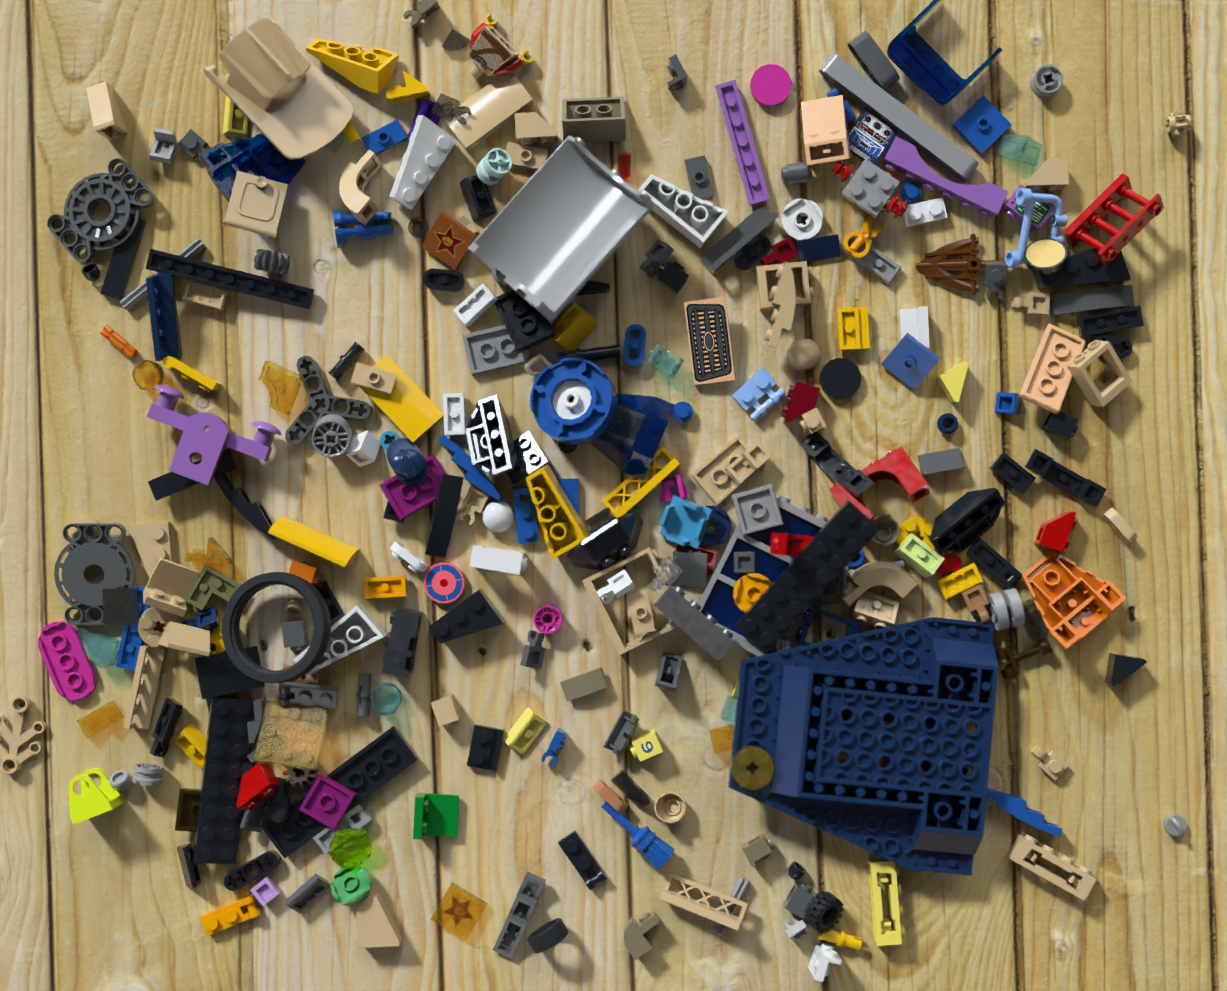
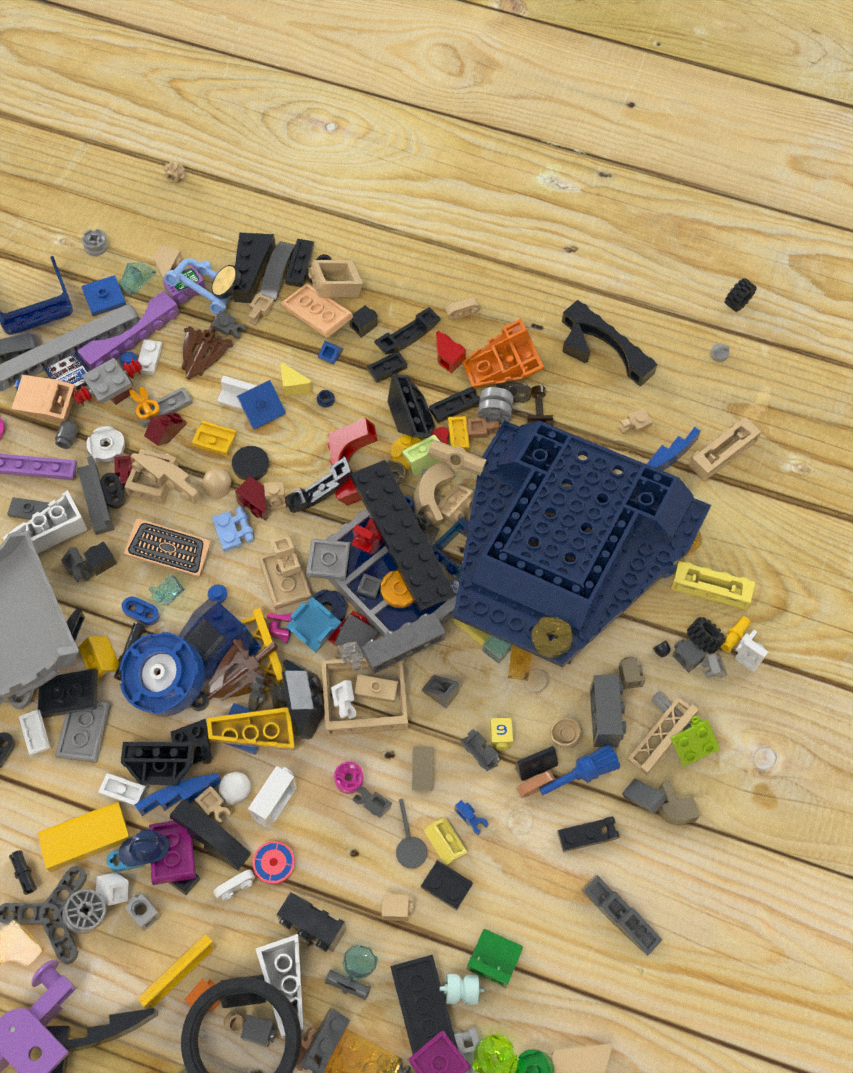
camera: 70 degrees left, 25 degrees down
(345, 489) = (146, 919): none -> light grey brick
(374, 378) = (51, 848): tan plate -> none
(385, 587) = (252, 920): light orange plate -> none
(396, 794) = (465, 989): none -> light aqua wheel
(458, 911) = (598, 975): clear yellow tile -> none
(468, 617) = (315, 849): black wedge -> none
(505, 703) = (410, 851): none -> dark grey piece
(525, 516) = (244, 762): blue plate -> none
(536, 364) = (114, 699): tan tile -> none
(547, 935) = (649, 890): black tyre -> none
(591, 463) = (224, 686): none -> reddish brown bar
(591, 500) = (257, 695): none -> dark grey plate
(636, 902) = (644, 795): none -> dark grey tile
(705, 841) = (607, 710): none -> dark grey brick
(709, 939) = (695, 741): none -> lime hinge
(818, 248) = (134, 439): dark blue slope -> none
(843, 272) = (164, 428): none -> dark red slope
(922, 595) = (445, 453): none -> tan piece
(940, 461) = (355, 410): slope -> none
(1107, 203) = (208, 232): red fence -> none
(1121, 741) = (637, 364): none -> black arch

